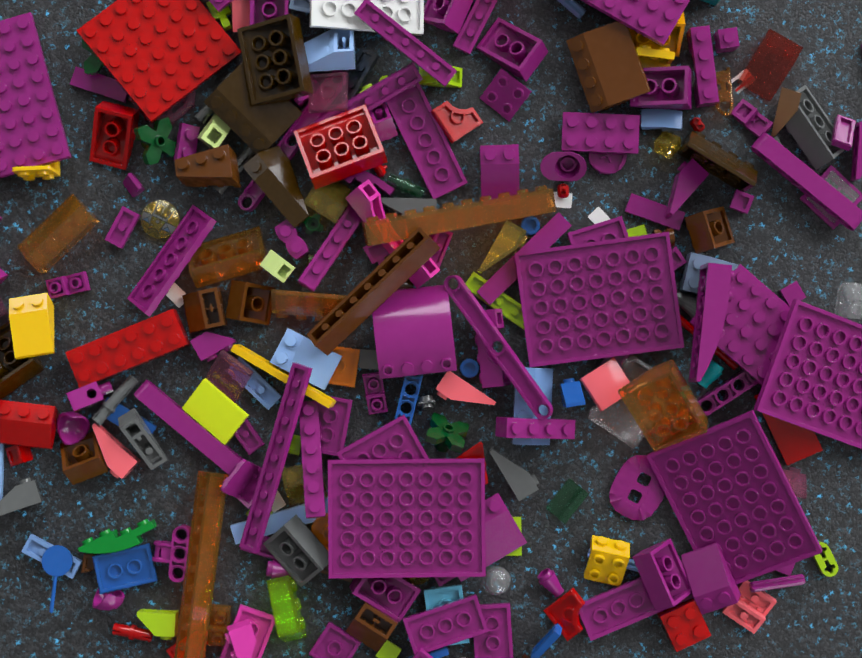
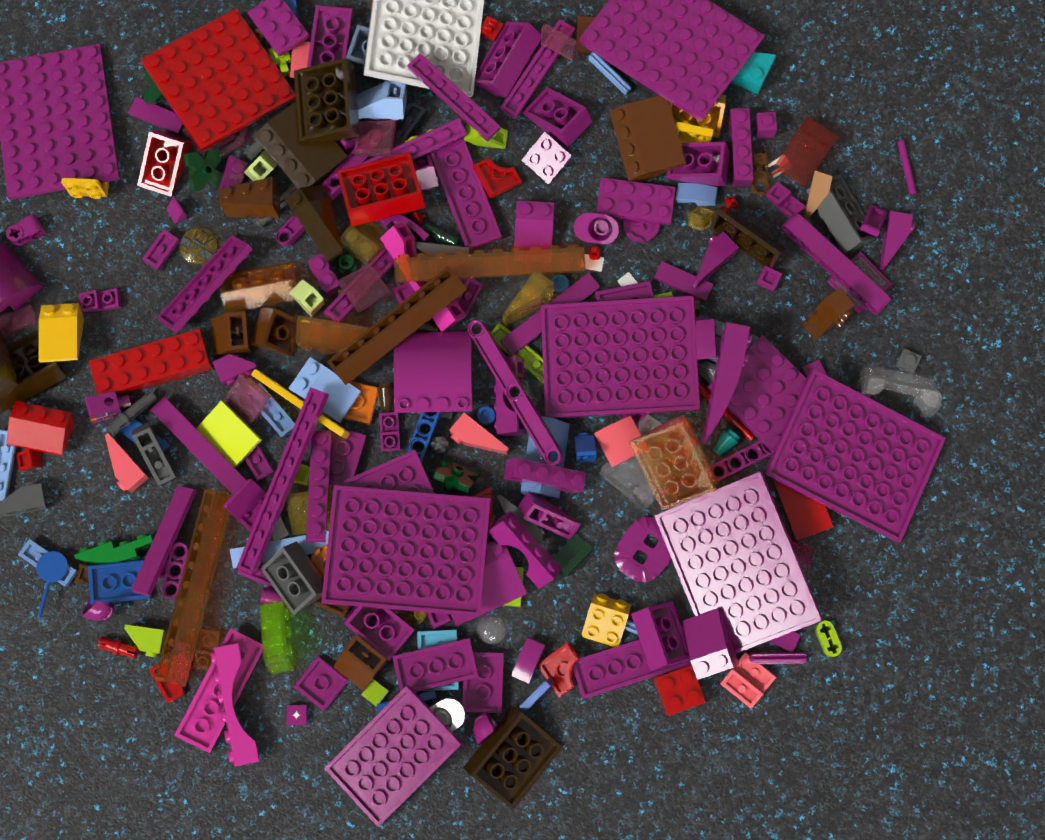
camera: 10 degrees right, 10 degrees down
(57, 234) = (97, 251): clear orange slope -> none
(72, 427) = (85, 436): magenta helmet -> none
(83, 459) = (92, 468): reddish brown slope -> none
(164, 526) = (163, 541): none -> magenta tile
(175, 295) = (203, 319): white sticker -> none
(334, 251) = (364, 287): none -> clear pink tile
(368, 358) = (386, 396): none -> dark brown cone
(509, 489) = (511, 532): none -> magenta arch
(535, 607) = (528, 660): none -> magenta slope
(537, 464) = (544, 514): none -> magenta slope
(549, 580) = (547, 636): magenta cone -> none
(685, 275) = (706, 339): none -> magenta slope
(709, 229) = (735, 301): reddish brown slope -> none
(806, 236) = (830, 313): none -> reddish brown wedge

